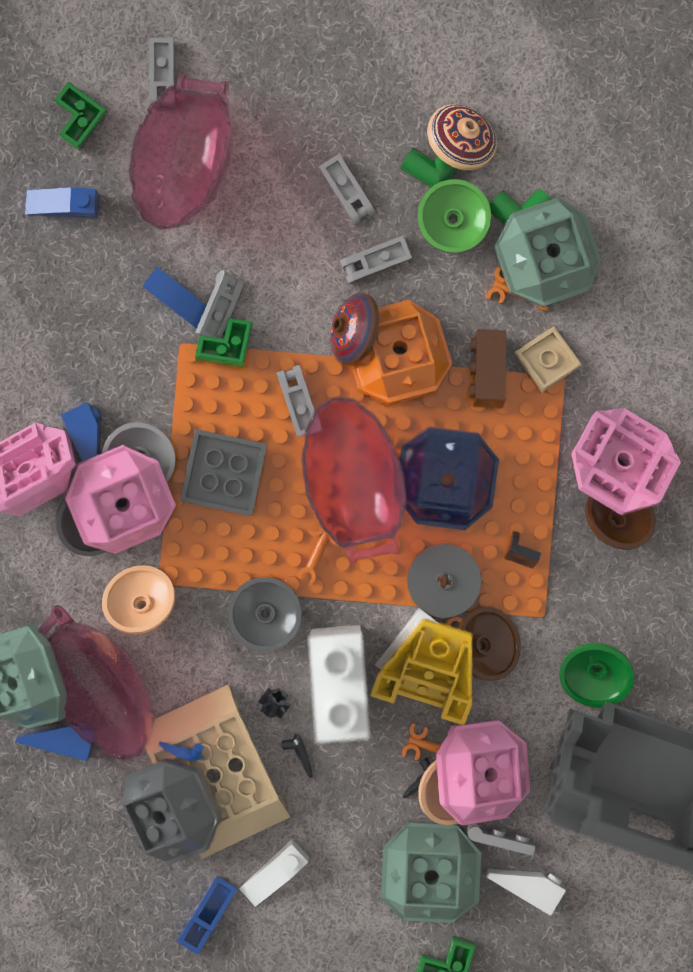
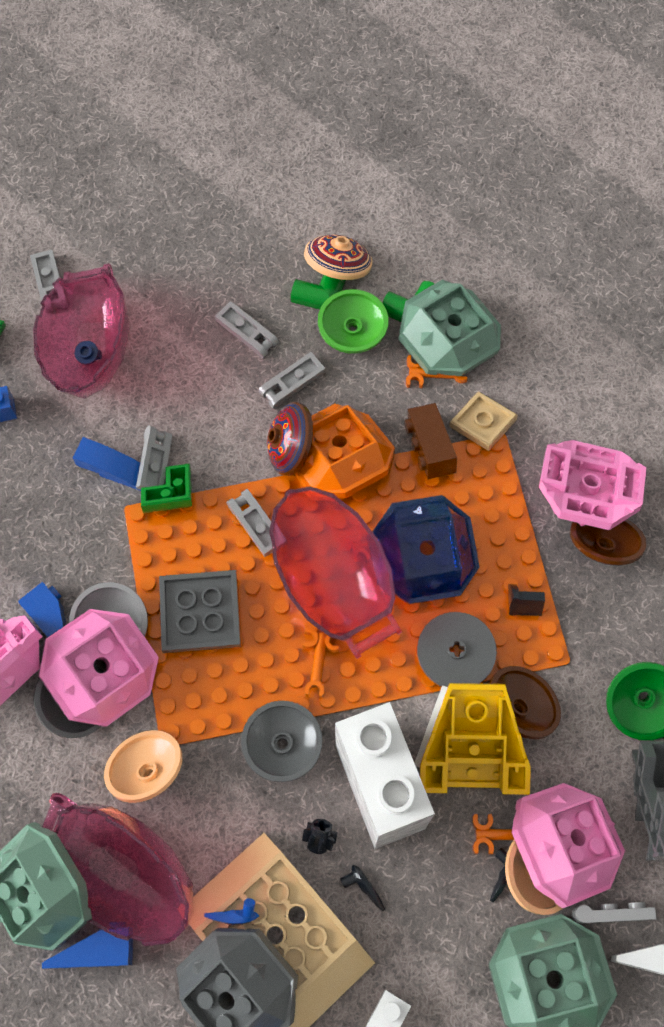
camera: 10 degrees left, 20 degrees down
(182, 173) = (87, 352): none -> dark blue plate

